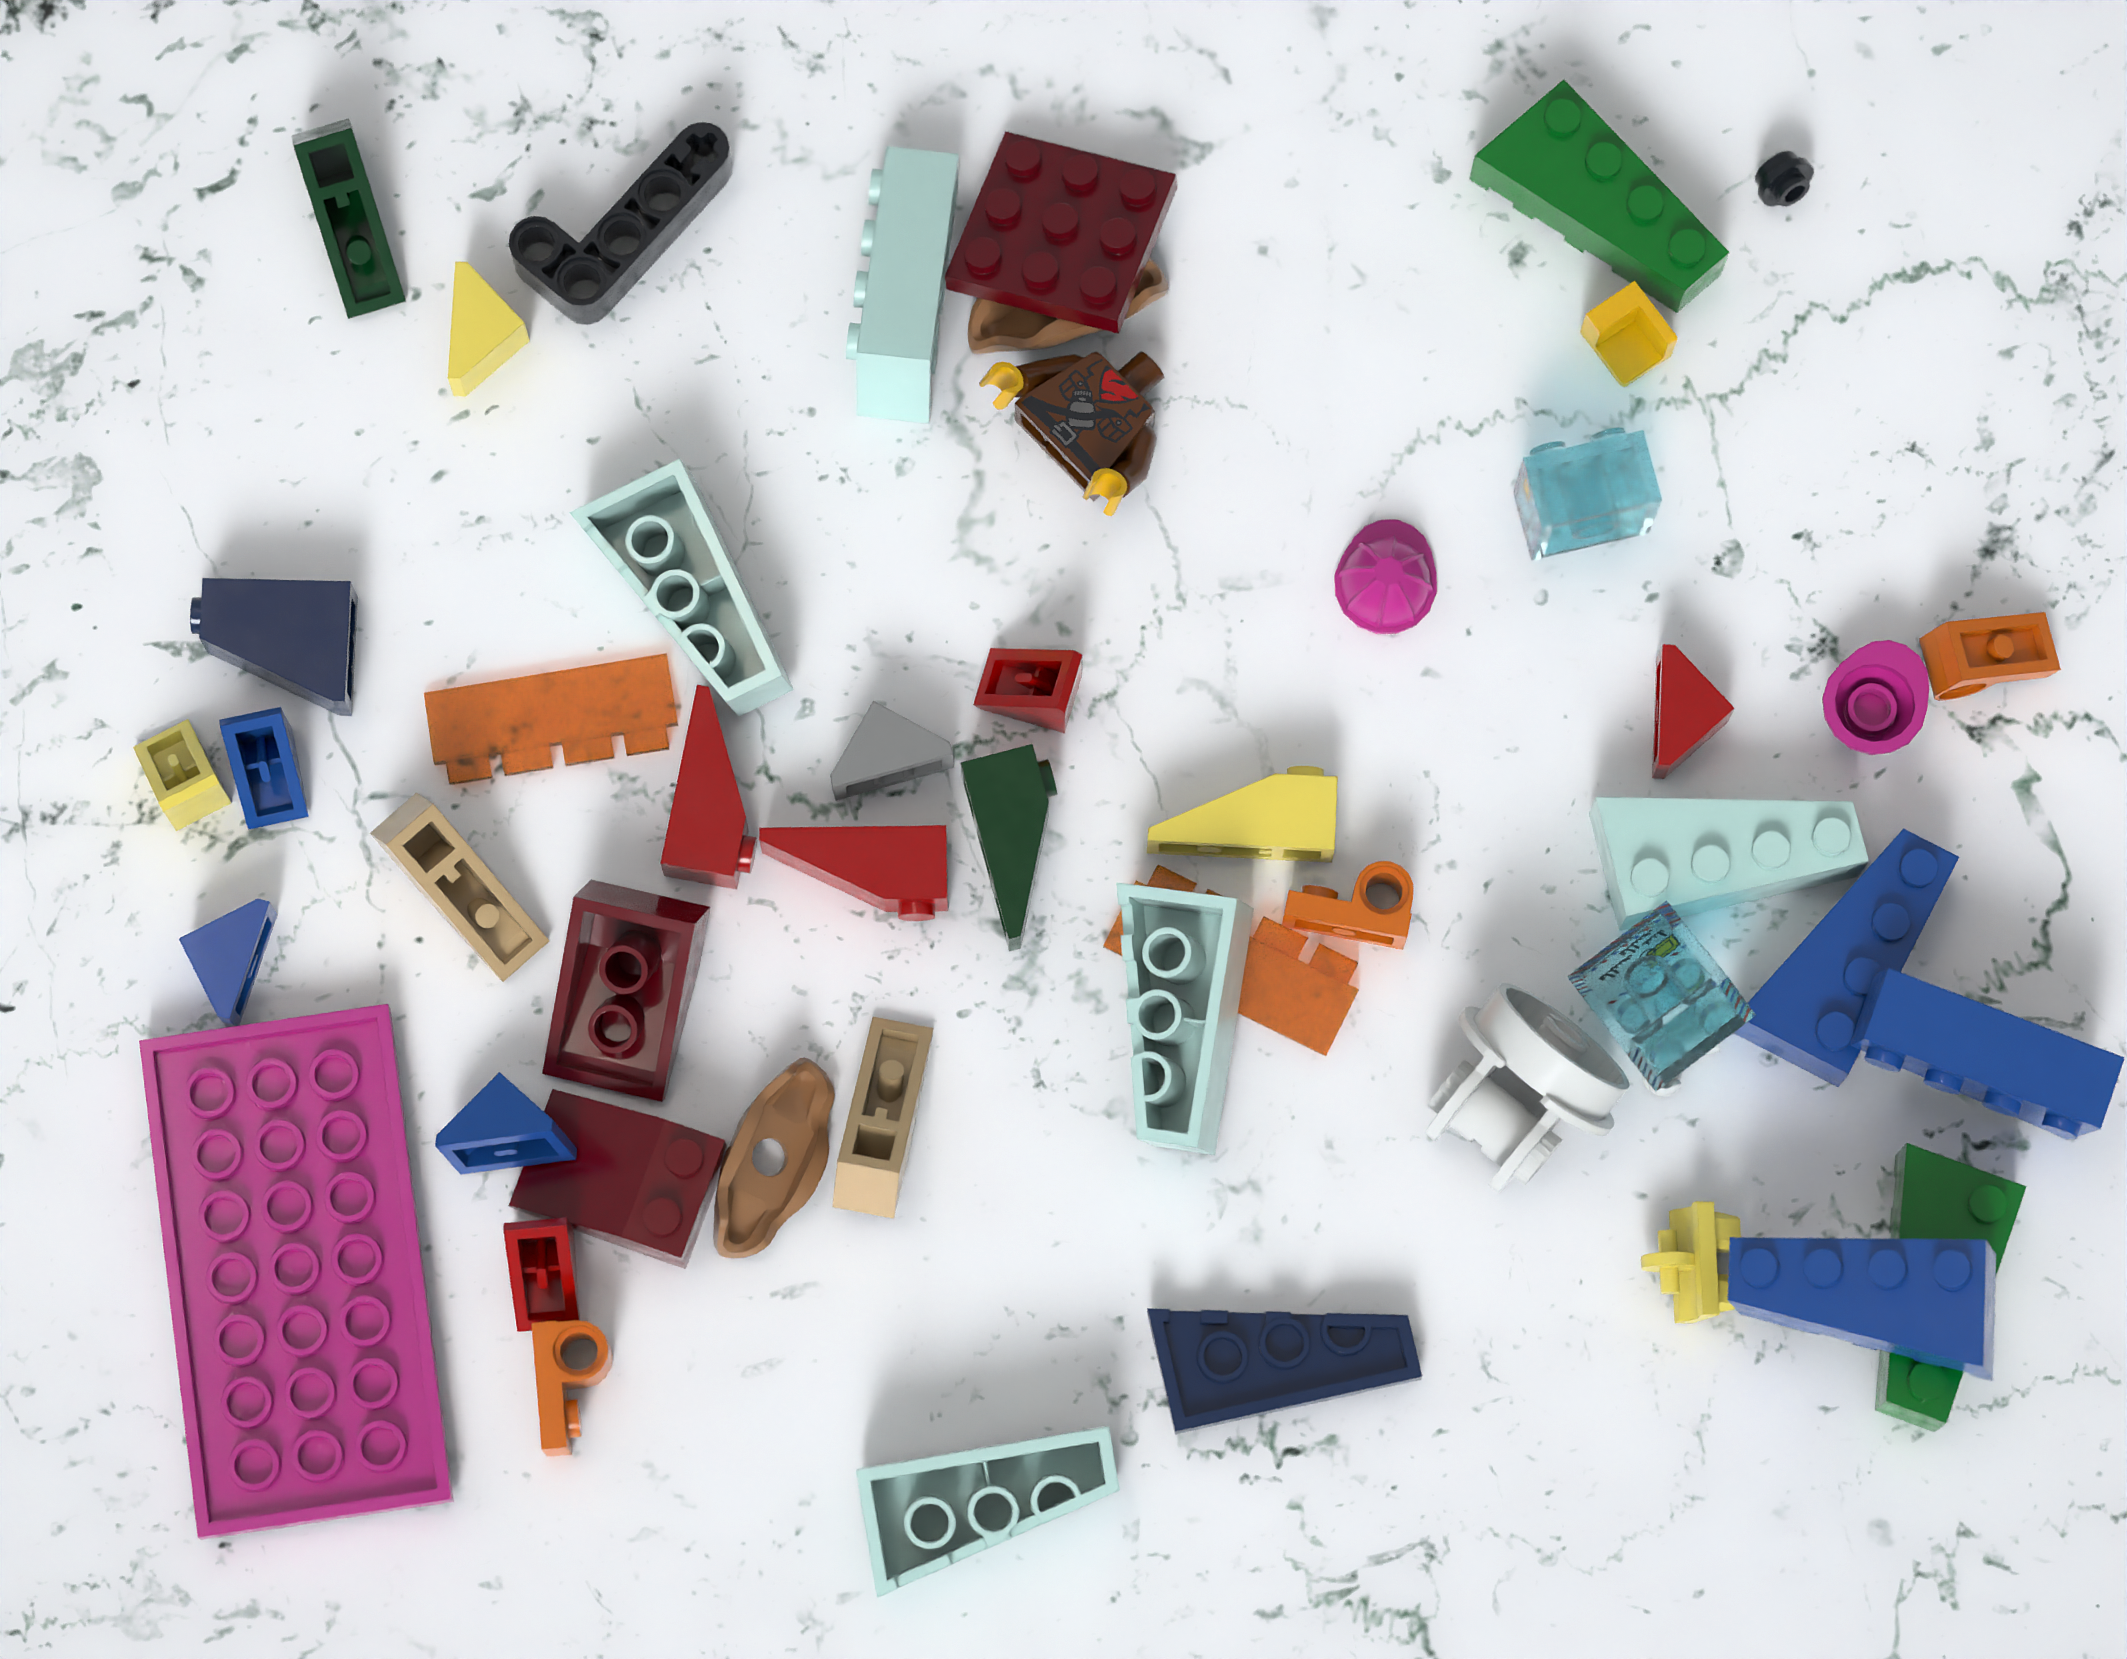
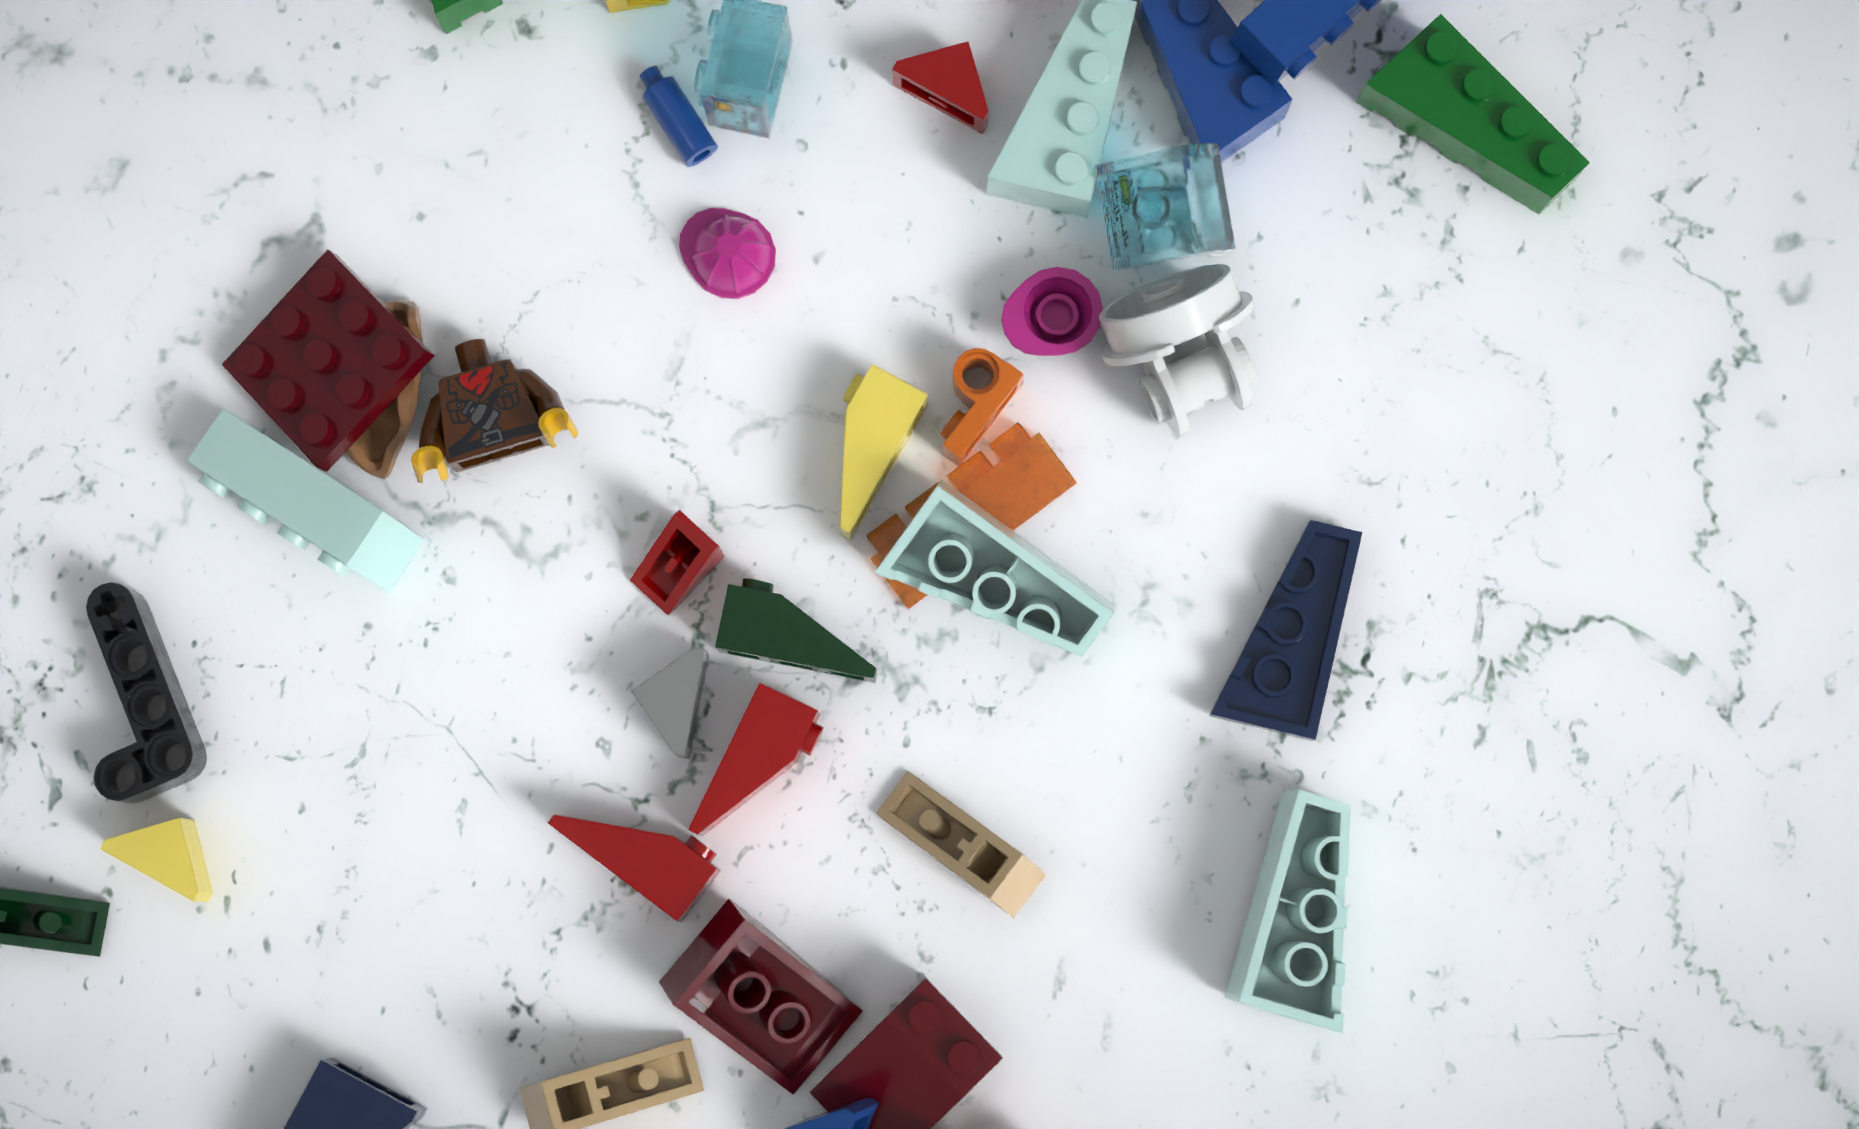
camera: 60 degrees left, 5 degrees up
(551, 709) = (500, 959): clear orange windscreen -> none
(681, 569) = (449, 789): light aqua wedge -> none
(796, 1116) = (981, 976): medium nougat piece -> none
(1489, 937) = (1052, 313): none -> dark pink piece
(1501, 454) = (677, 117): none -> blue cylinder
(1690, 1261) = (1371, 288): light yellow hips -> none
(1881, 1294) = (1485, 149): blue wedge -> none

